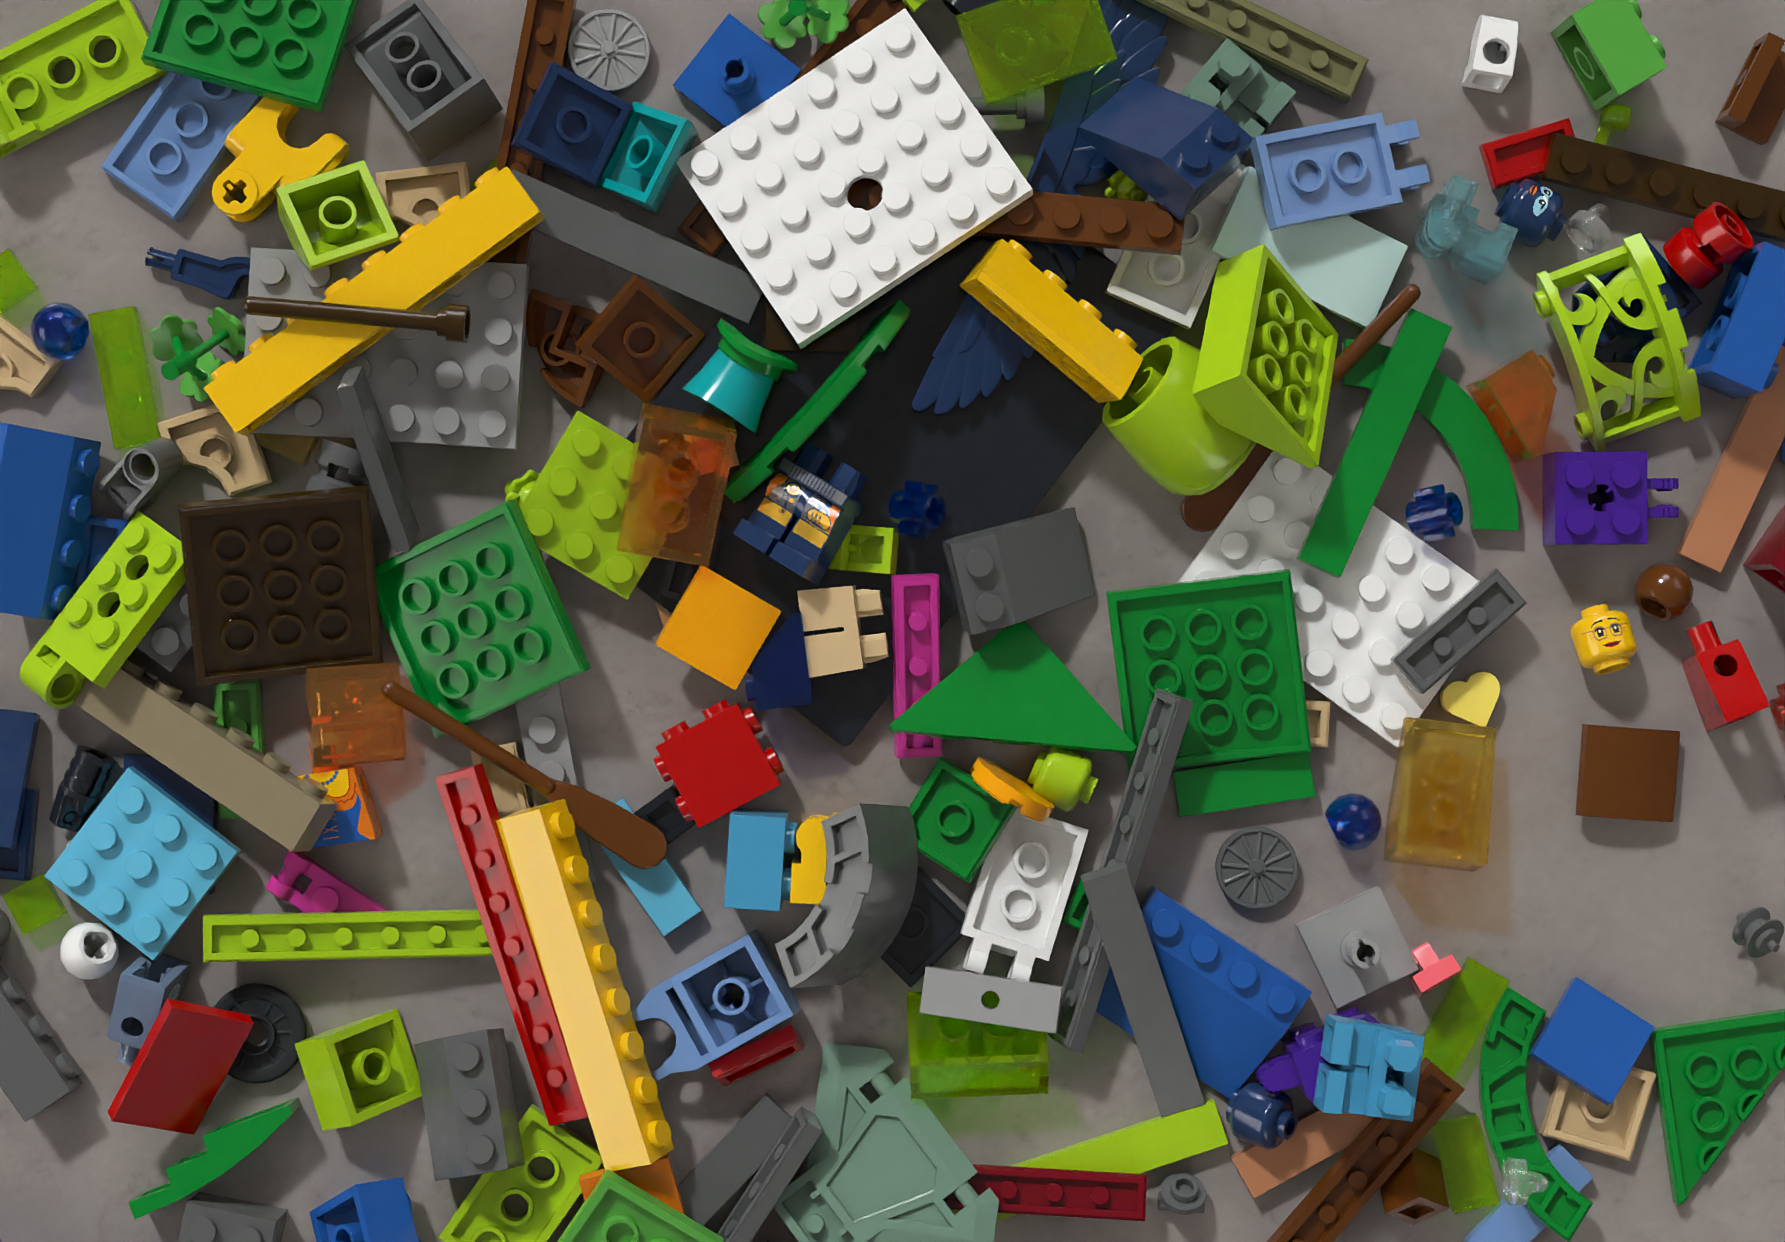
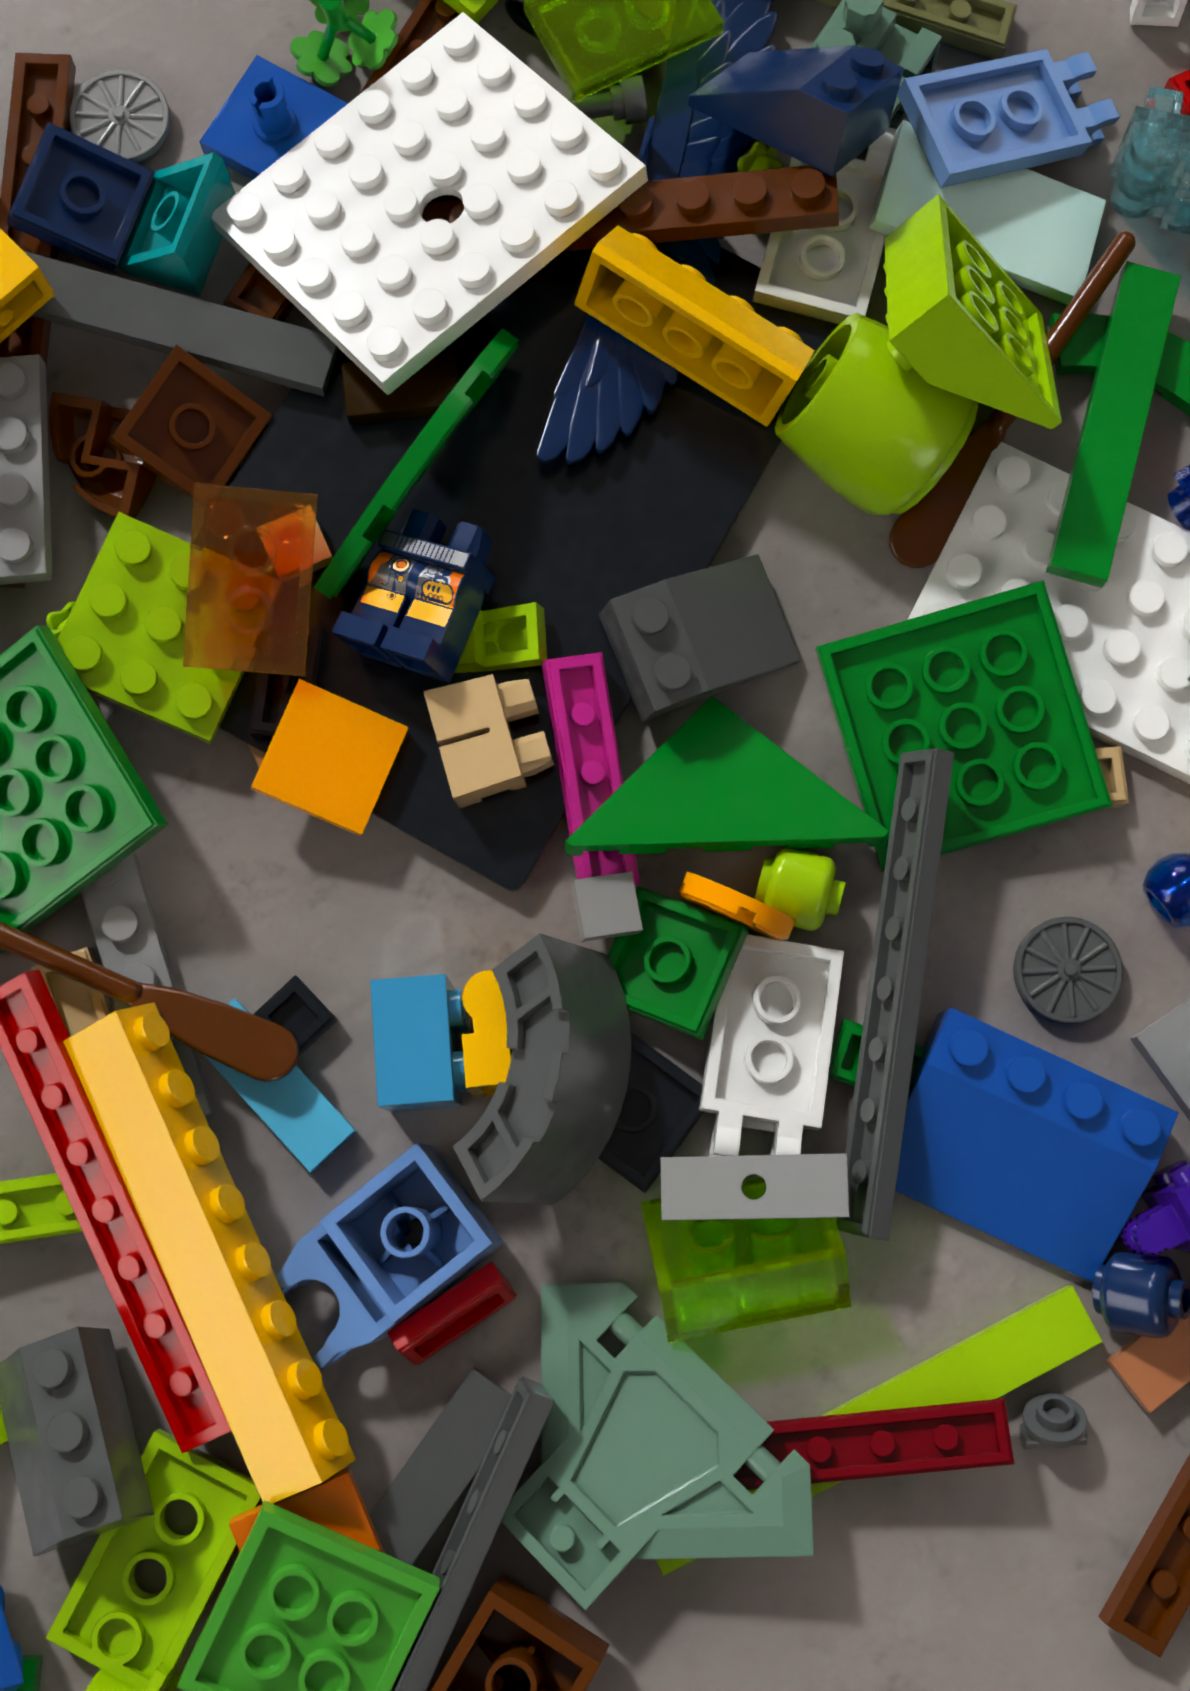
camera: 10 degrees left, 10 degrees down
(717, 762) = (350, 930): red brick -> none
(739, 377) = (317, 442): teal hat -> none
(781, 669) = (417, 797): clear blue slope -> none
(913, 773) = (606, 906): none -> light grey tile
(917, 509) = (562, 575): clear blue gear -> none
(1142, 988) = (954, 1141): dark grey tile -> none
(1243, 784) = (1030, 865): green tile -> none

